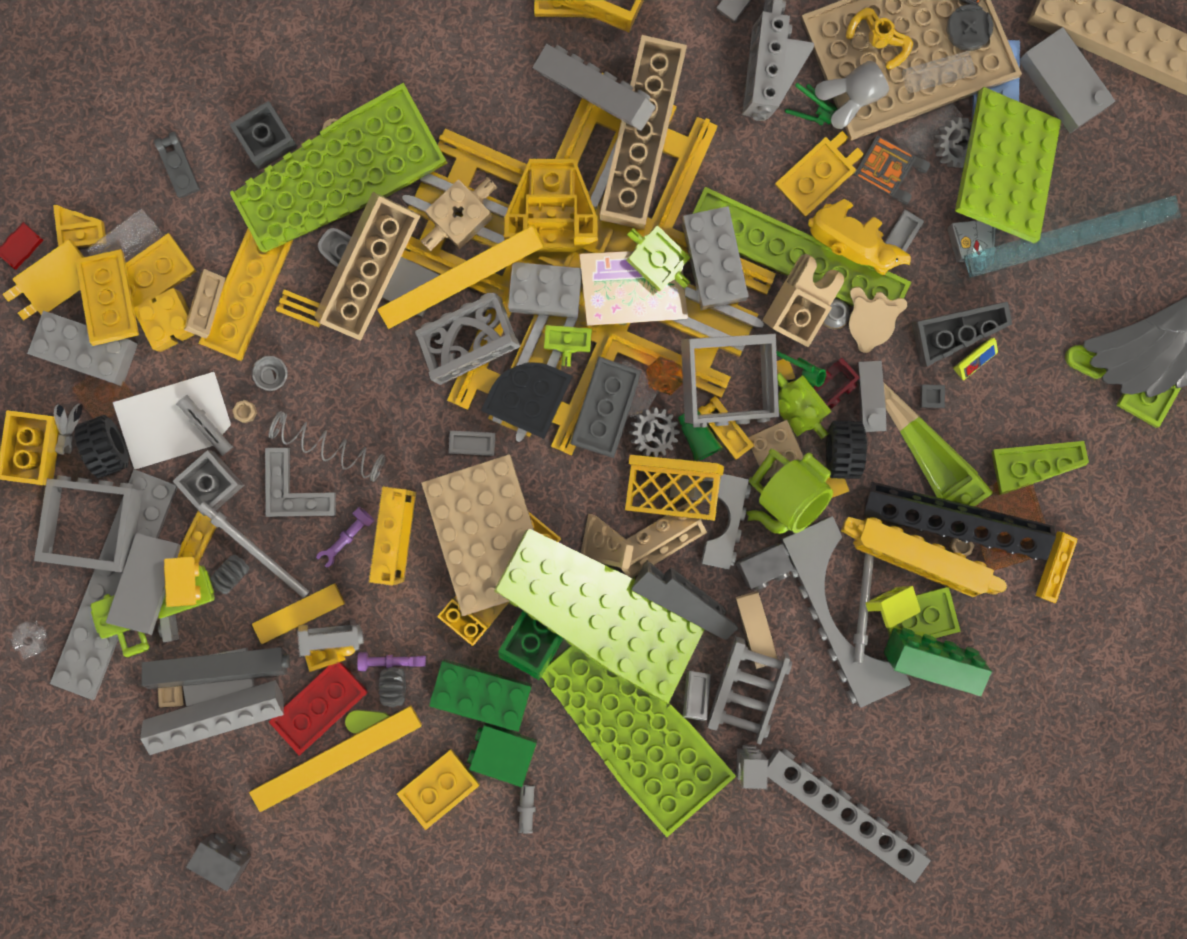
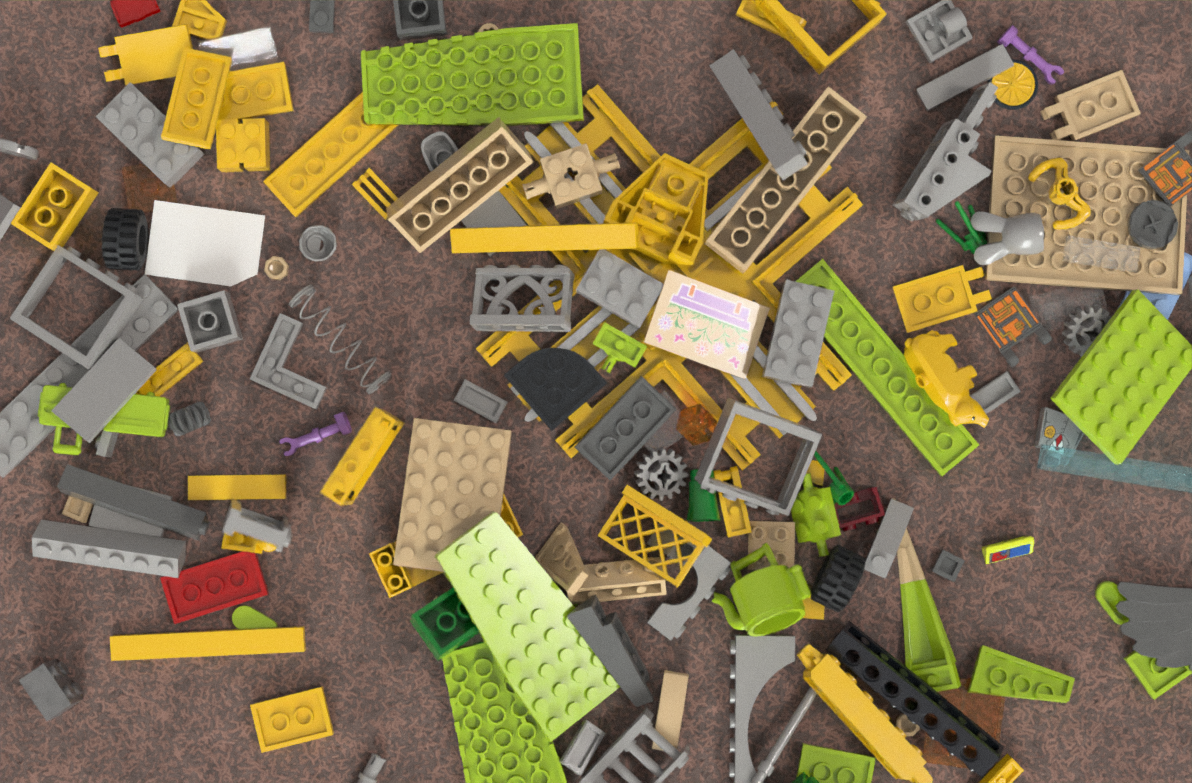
camera: 30 degrees right, 0 degrees up
(66, 427) = (99, 203): light grey piece -> none
(180, 581) = (140, 406): yellow brick -> none
(204, 303) = (287, 147): tan plate -> none
(204, 425) = (232, 263): light grey pin -> none
(219, 520) = (204, 362): light grey bar -> none
(389, 661) = (279, 563): medium lavender piece -> none
(392, 687) = (294, 600): dark grey gear -> none
(480, 695) = (375, 648): green brick -> none
(502, 754) = (369, 715): green brick -> none
(658, 258) = (743, 309): plate -> none
(765, 566) = (706, 653): flat silver brick -> none
(802, 304) = (862, 417): tan brick -> none
(838, 315) = (890, 440): light grey piece -> none
(874, 318) = (925, 464): tan tile -> none
(895, 605) = (815, 751): neon yellow panel -> none
(950, 332) = (997, 512): dark grey wedge -> none

